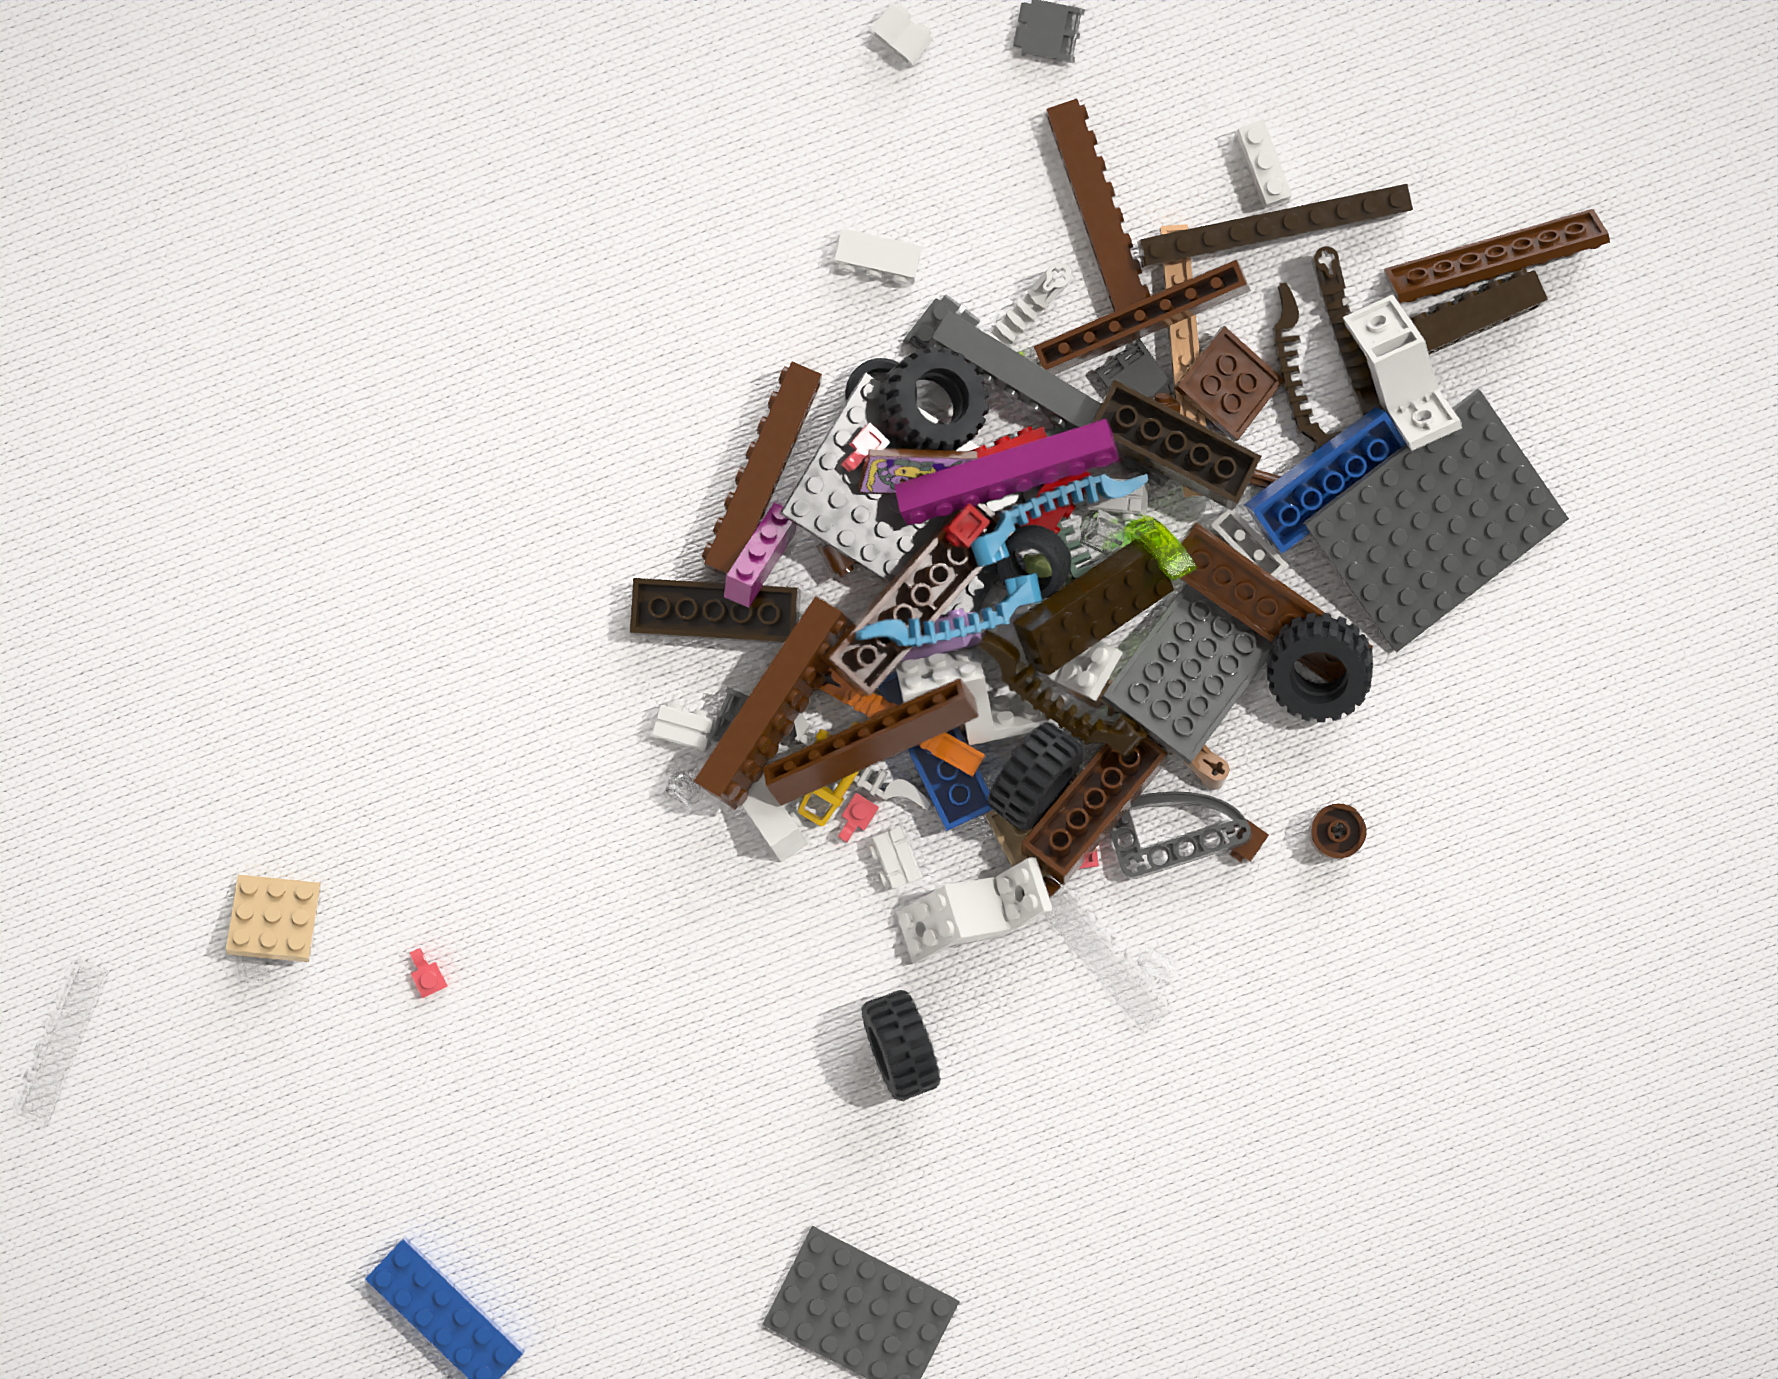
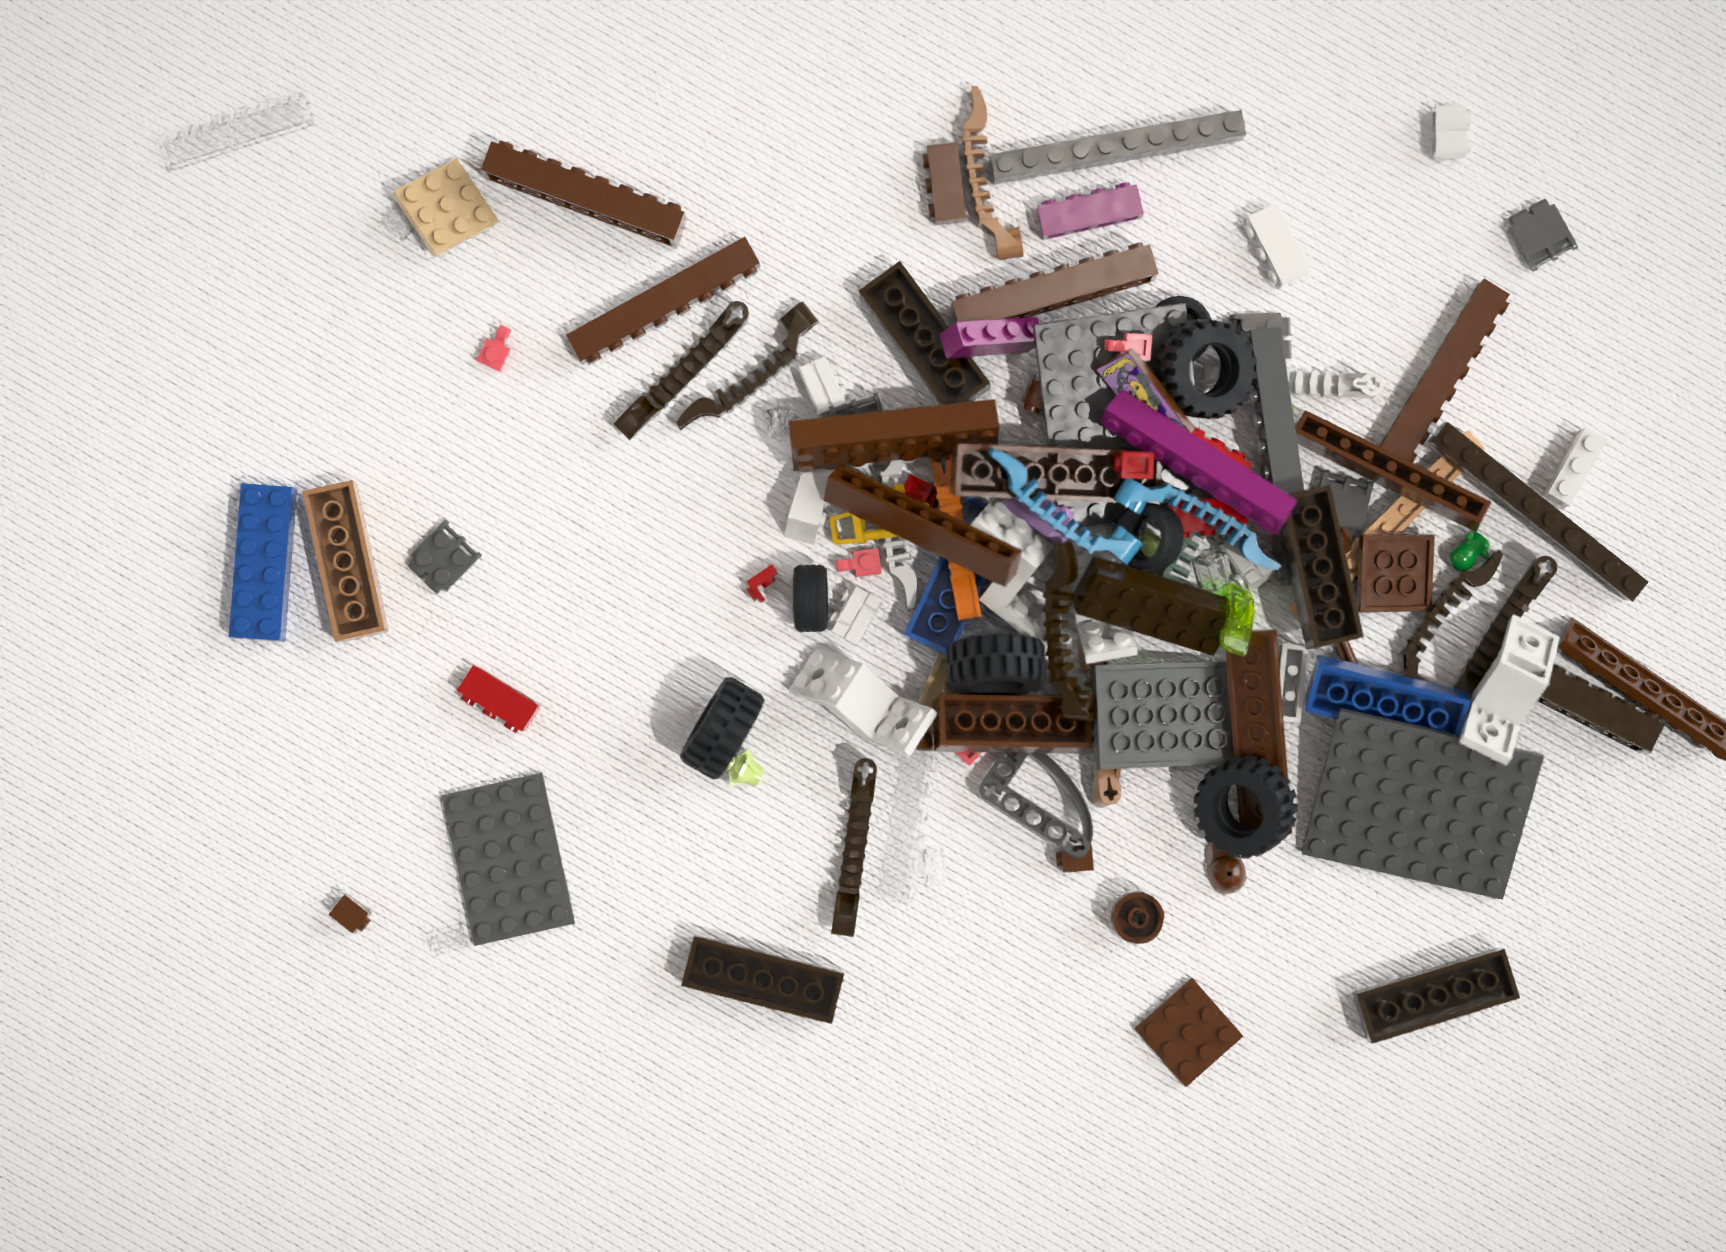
camera: 55 degrees right, 0 degrees up
(359, 793) = (584, 194): none -> reddish brown brick
(501, 1245) = (345, 561): none -> medium nougat brick
(502, 800) = (664, 300): none -> reddish brown brick
(565, 1162) = (442, 558): none -> dark grey plate
(576, 839) = (659, 396): none -> dark brown piece
(598, 486) = (944, 184): none -> reddish brown brick
(613, 705) = (797, 322): none -> dark brown piece
(686, 318) = (1117, 147): none -> brick
(688, 474) = (1007, 241): none -> medium nougat piece
(721, 385) = (1089, 211): none -> brick
(721, 1212) = (498, 699): none -> red brick
(803, 908) = (763, 578): none -> red bracket
(838, 718) = (921, 490): none -> red bracket
(852, 883) = (810, 598): none -> black tyre
(950, 1054) = (744, 770): none -> yellowish green rock
(1092, 1021) = (854, 852): none -> dark brown piece
(1135, 1182) = (763, 979): none -> dark brown brick
(1260, 312) = (1465, 552): none -> green animal
(1350, 727) = (1219, 865): none -> reddish brown cap
(1466, 866) = (1188, 1032): none -> reddish brown plate
(1602, 639) = (1436, 995): none -> dark brown brick

